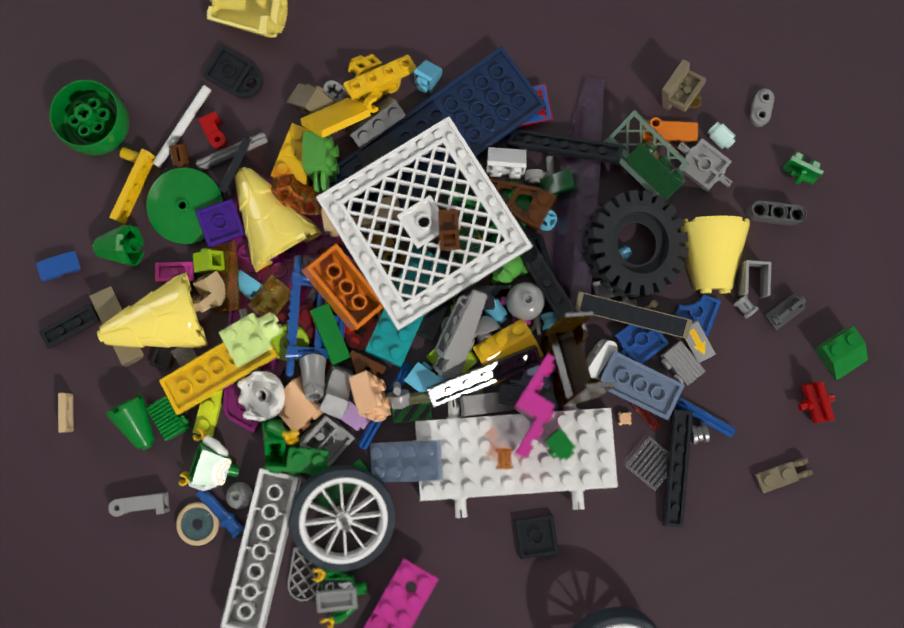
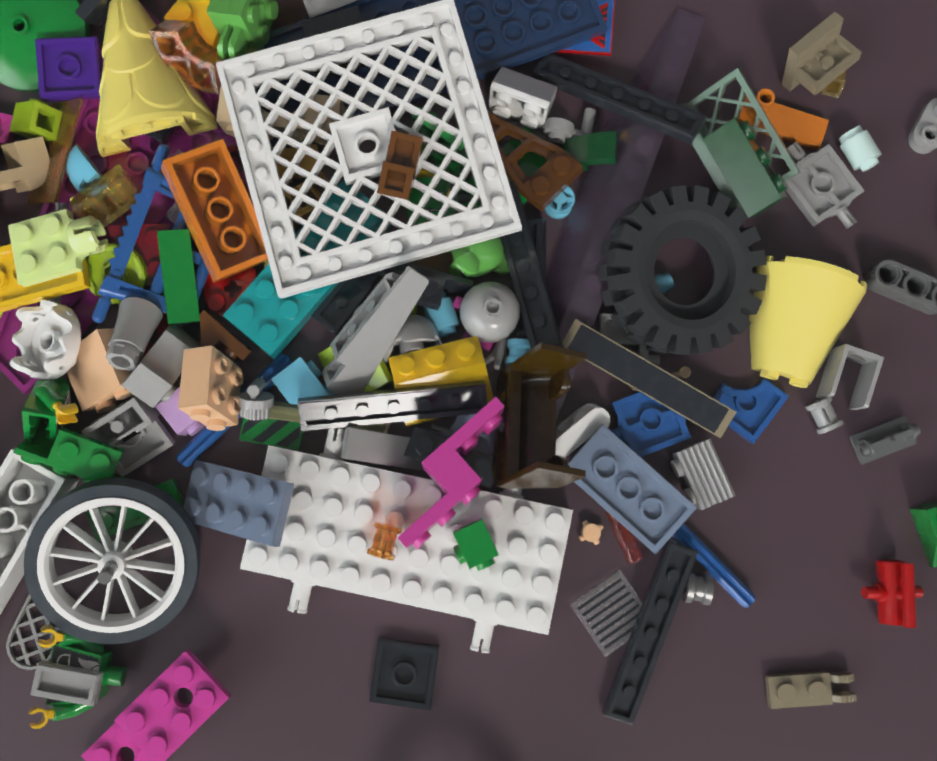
camera: 15 degrees right, 0 degrees up
(699, 343) = (737, 450): light grey tile -> none

